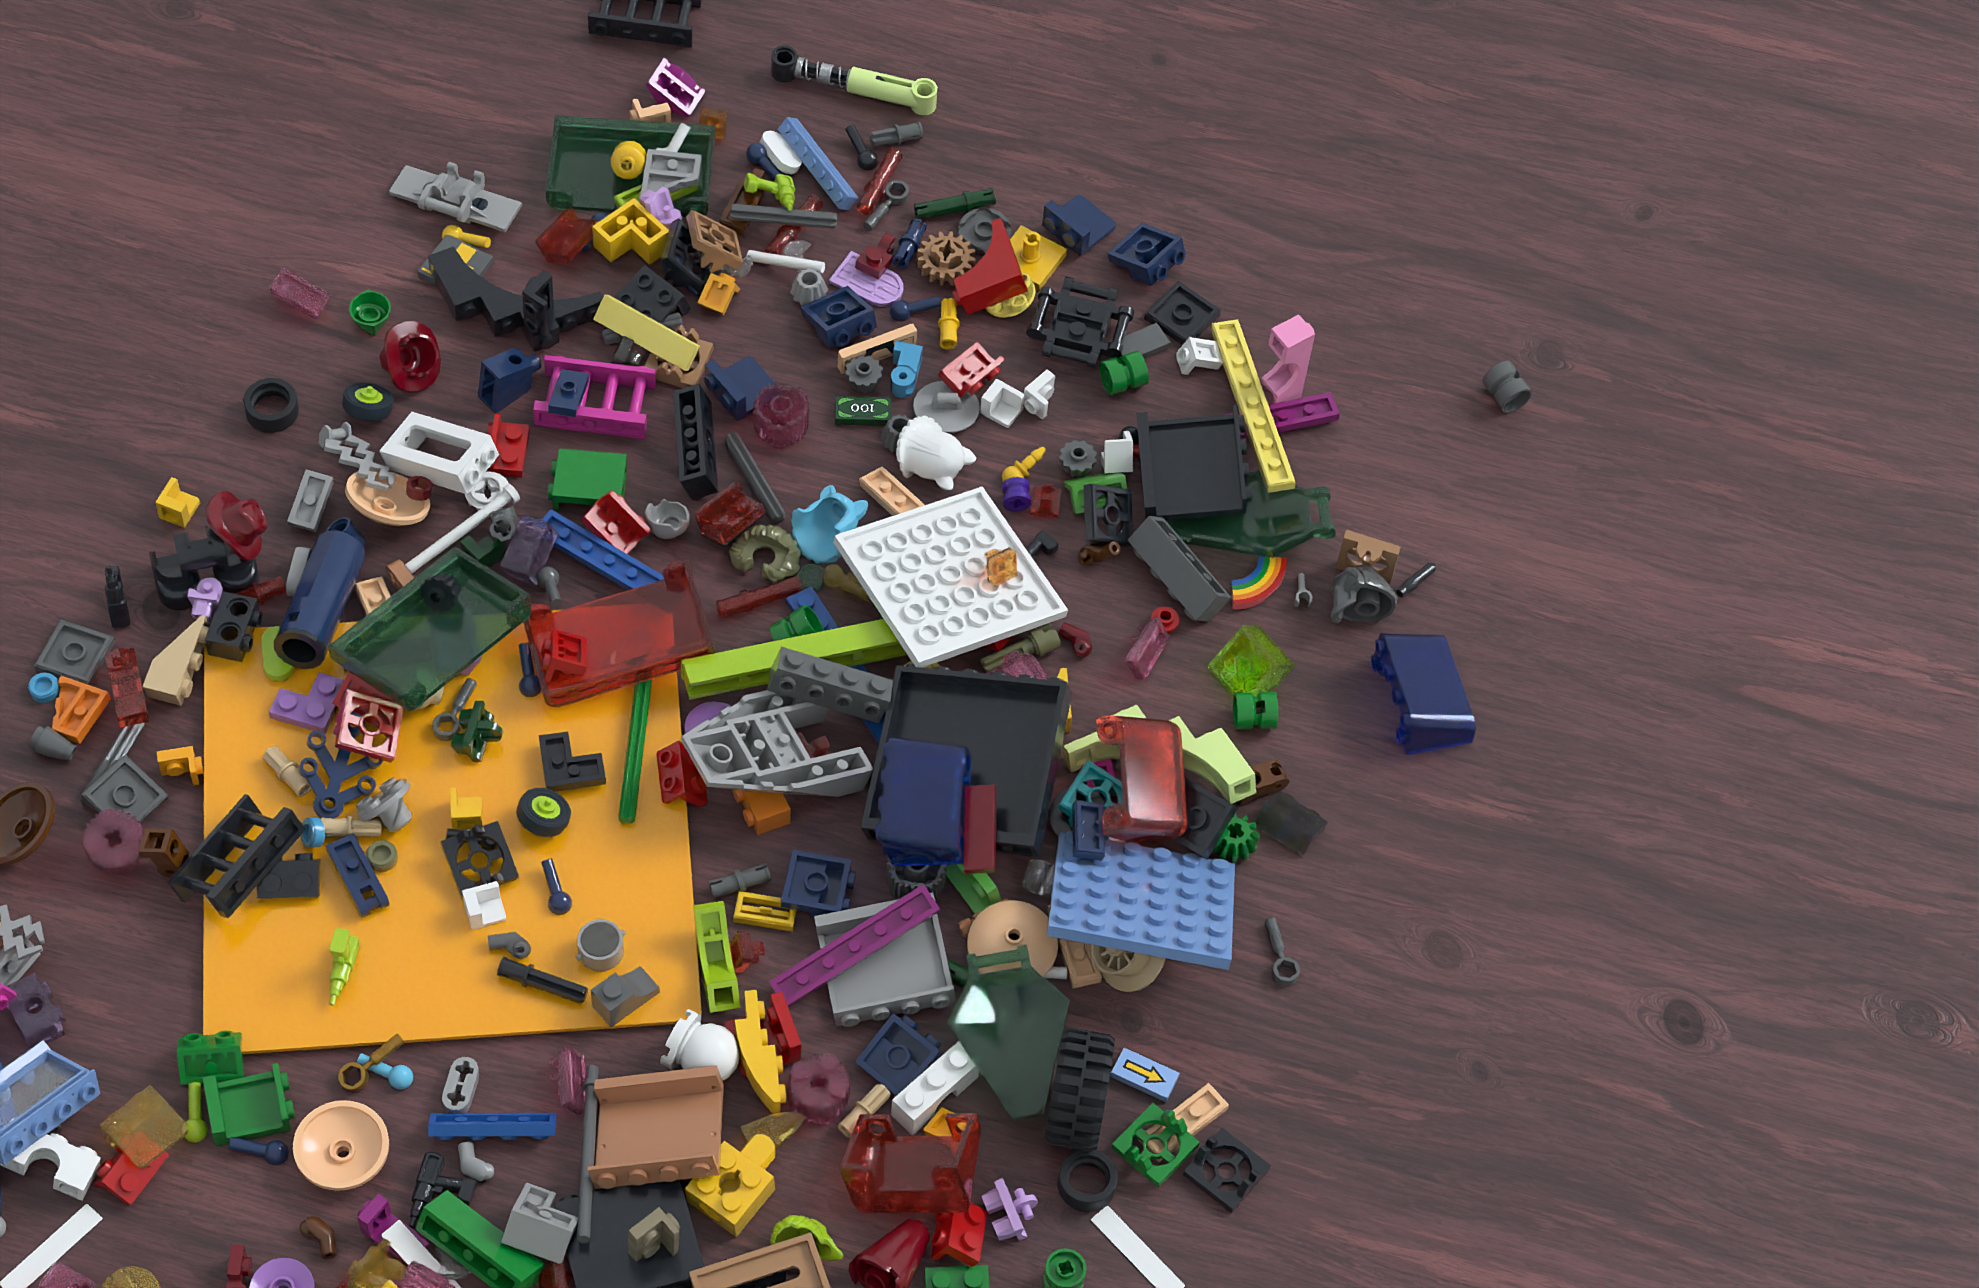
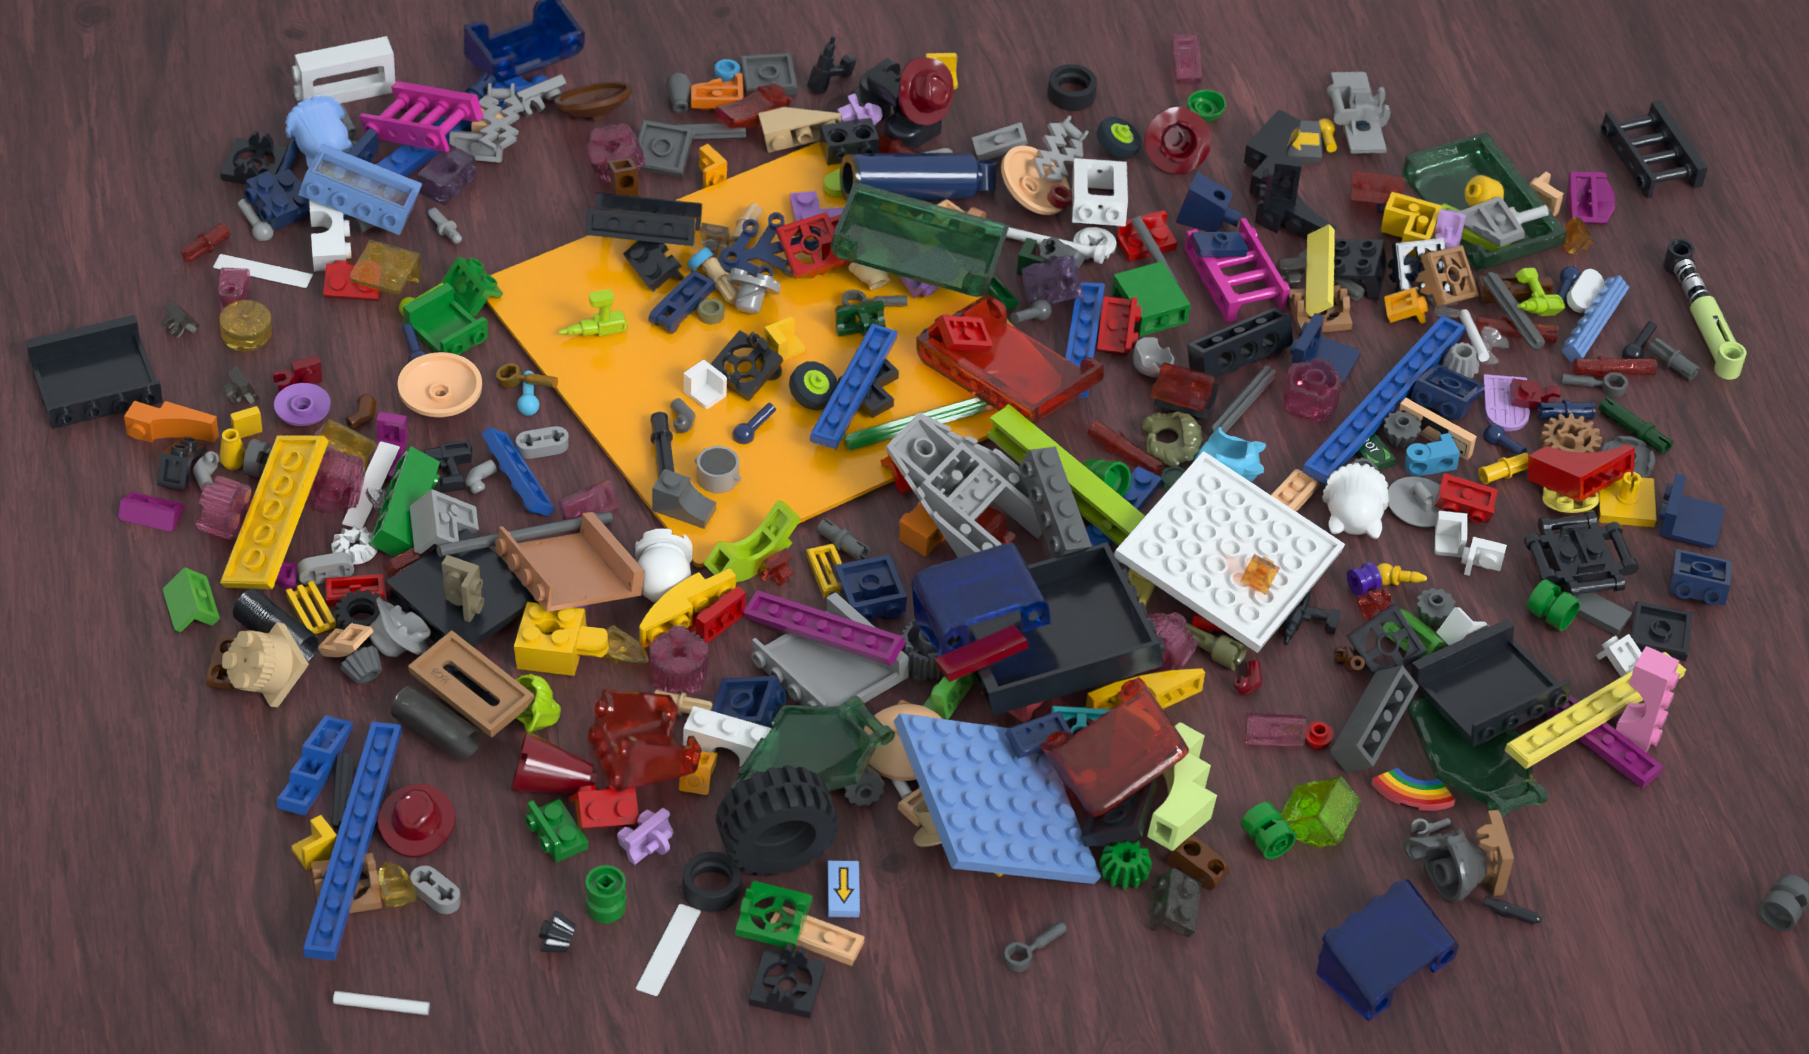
camera: 65 degrees right, 10 degrees down
(97, 1046) = (444, 226): none -> light grey piece
(293, 802) = (714, 237): none -> clear smoke tile
(440, 592) = (960, 232): black piece -> none
(528, 447) = (1150, 244): none -> dark grey bar
(569, 778) = (853, 386): none -> blue tile
(823, 368) = (1383, 399): none -> blue plate

